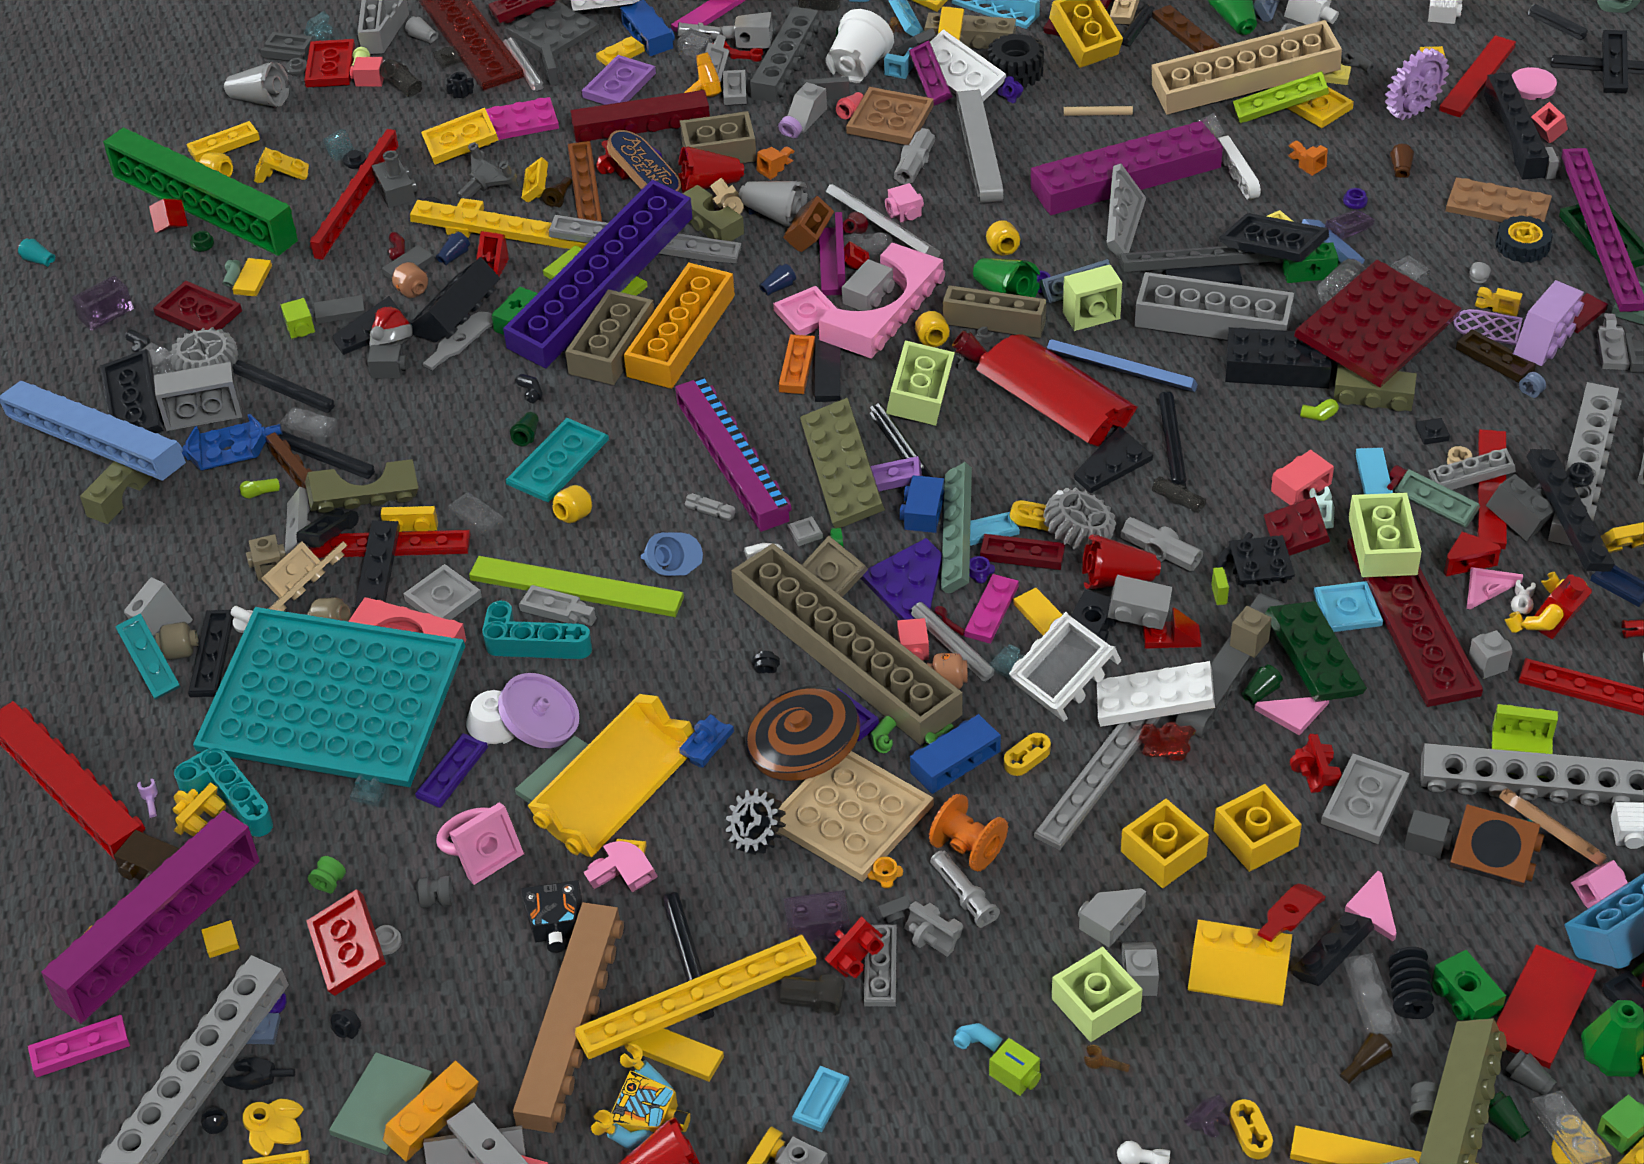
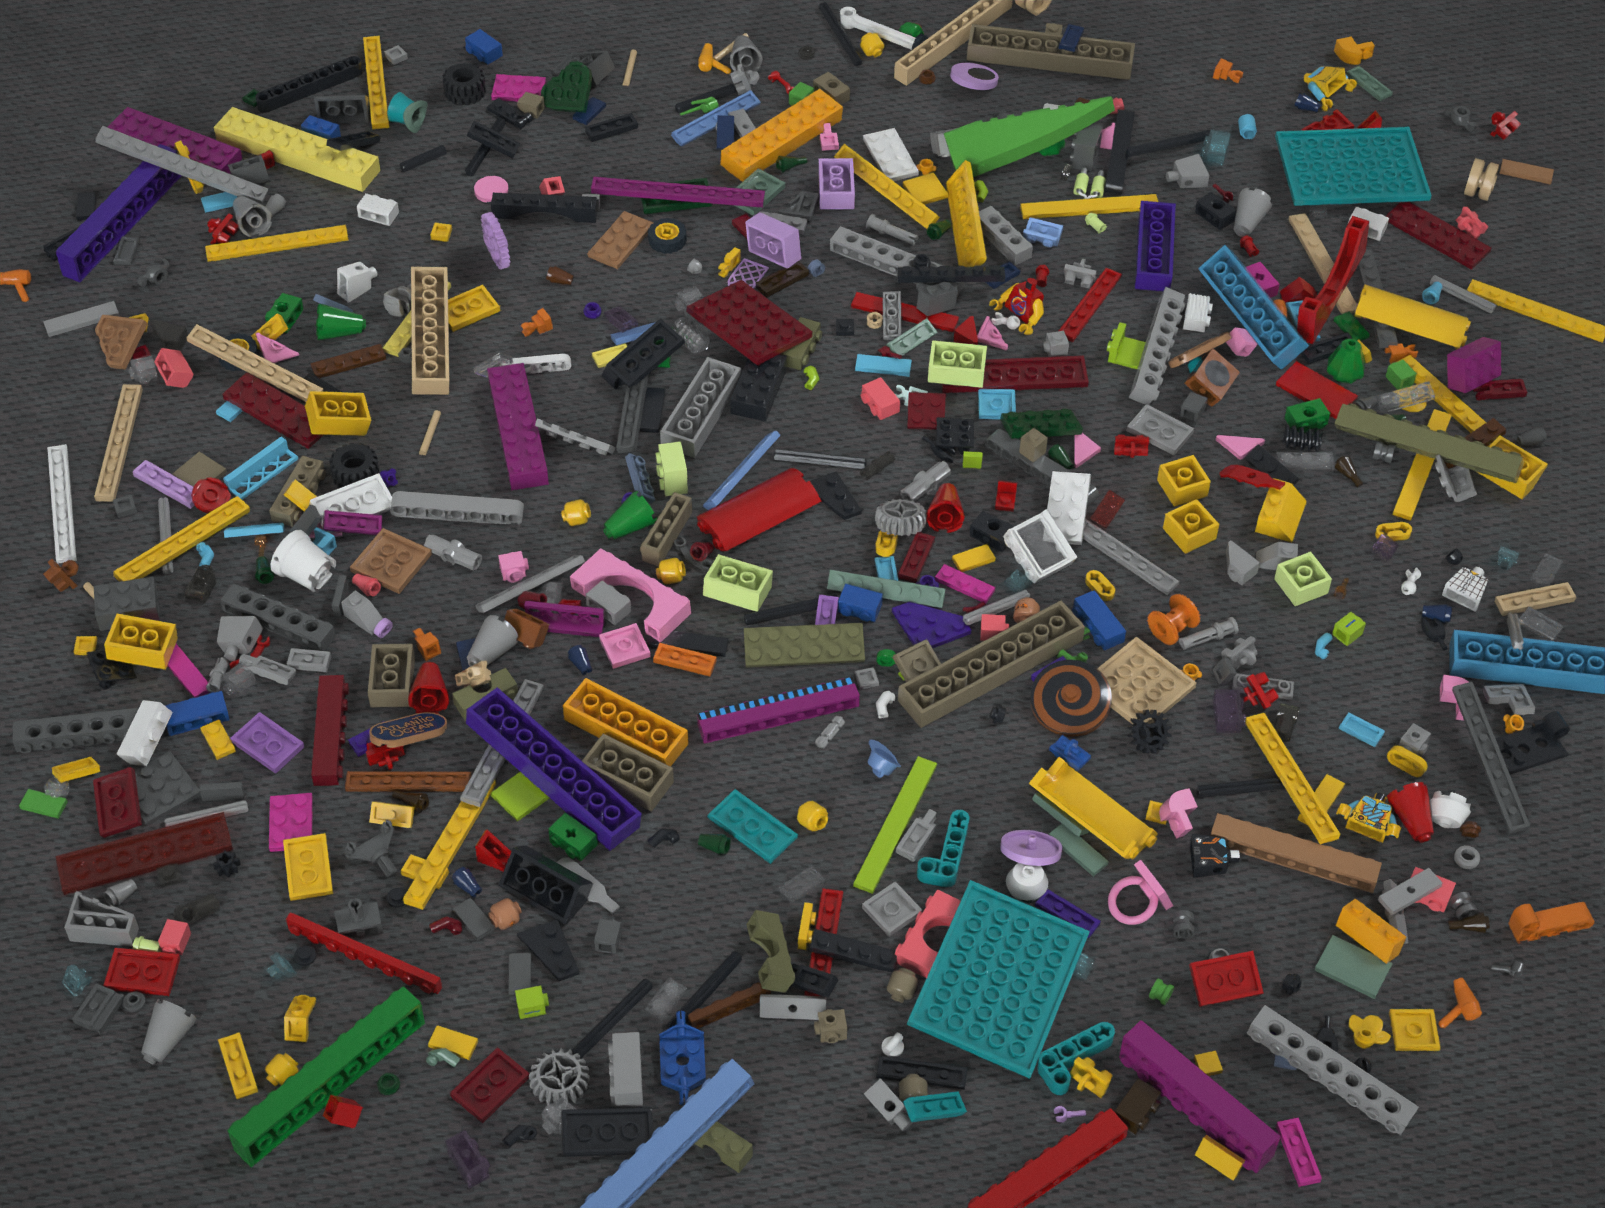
camera: 85 degrees left, 5 degrees up
(256, 488) = (741, 1036): lime arm -> none
(295, 570) = (860, 1003): tan bracket -> none
(390, 327) = (579, 927): piece -> none
(707, 75) = (300, 674): light orange piece -> none
(1140, 602) = (995, 495): light grey brick -> none
(1281, 97) = (468, 321): lime plate -> none
(1475, 77) = (462, 209): red tile -> none

